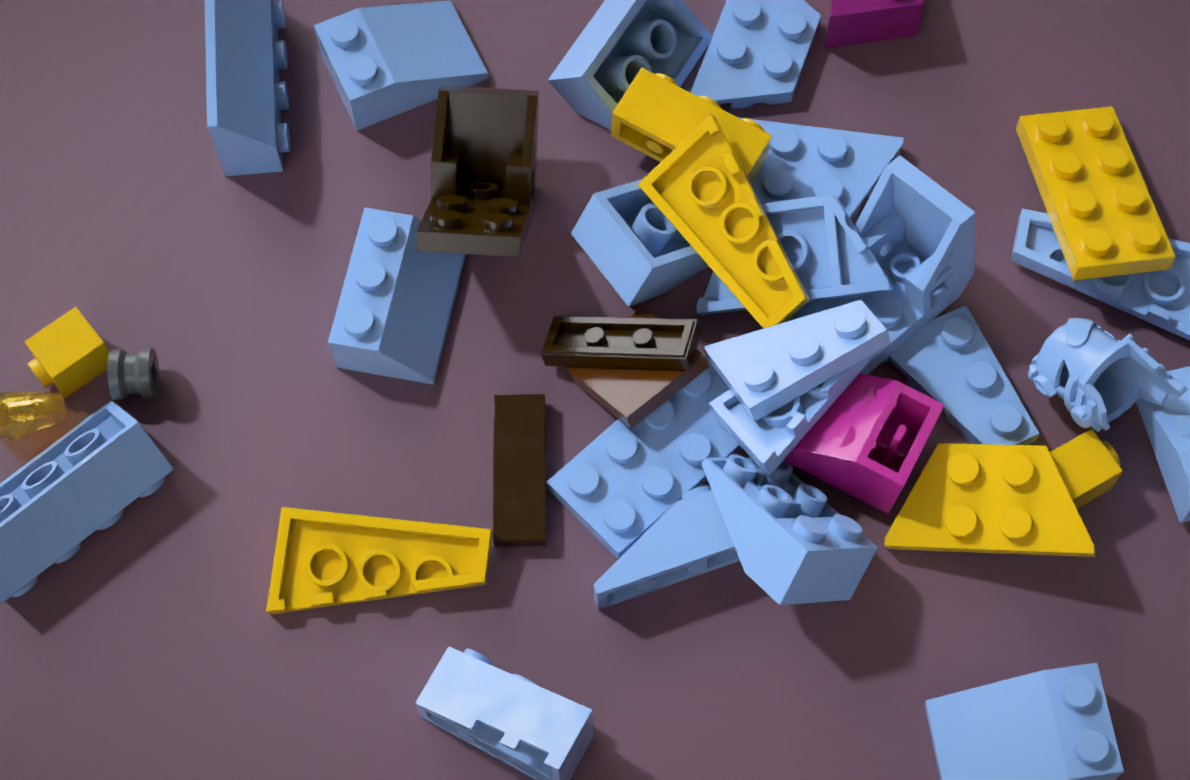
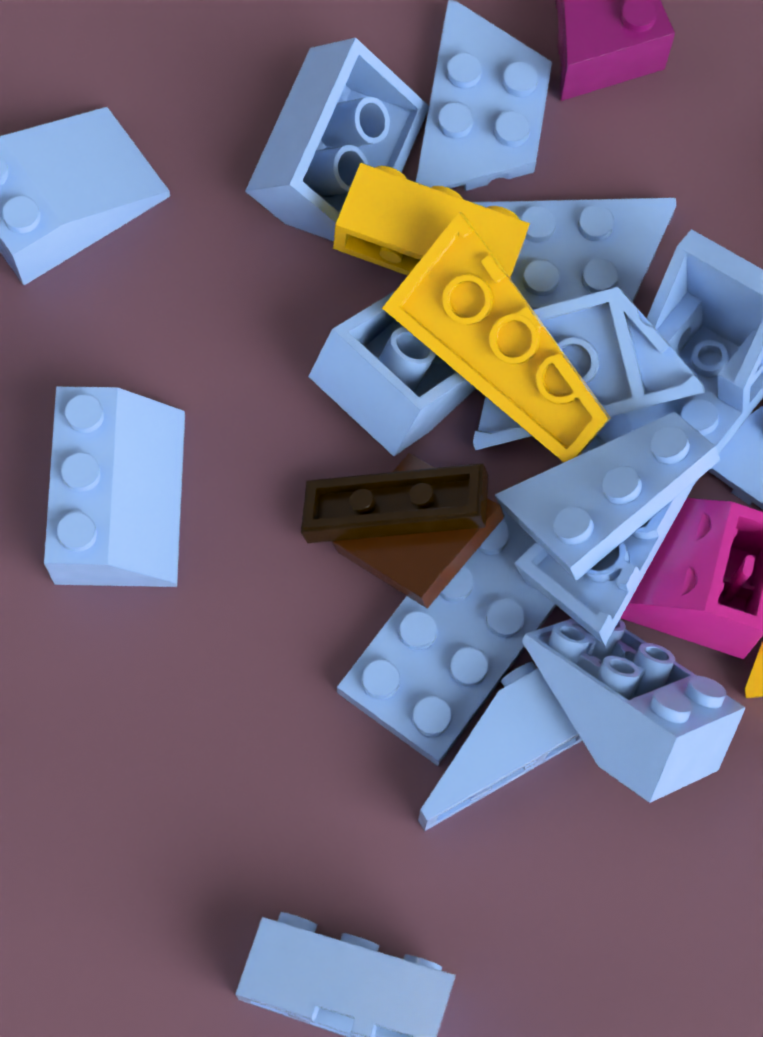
camera: 15 degrees left, 5 degrees up
(360, 558) = (131, 820): yellow wing -> none
(481, 172) = (190, 323): dark brown bracket -> none
(519, 470) = (301, 677): dark brown tile -> none

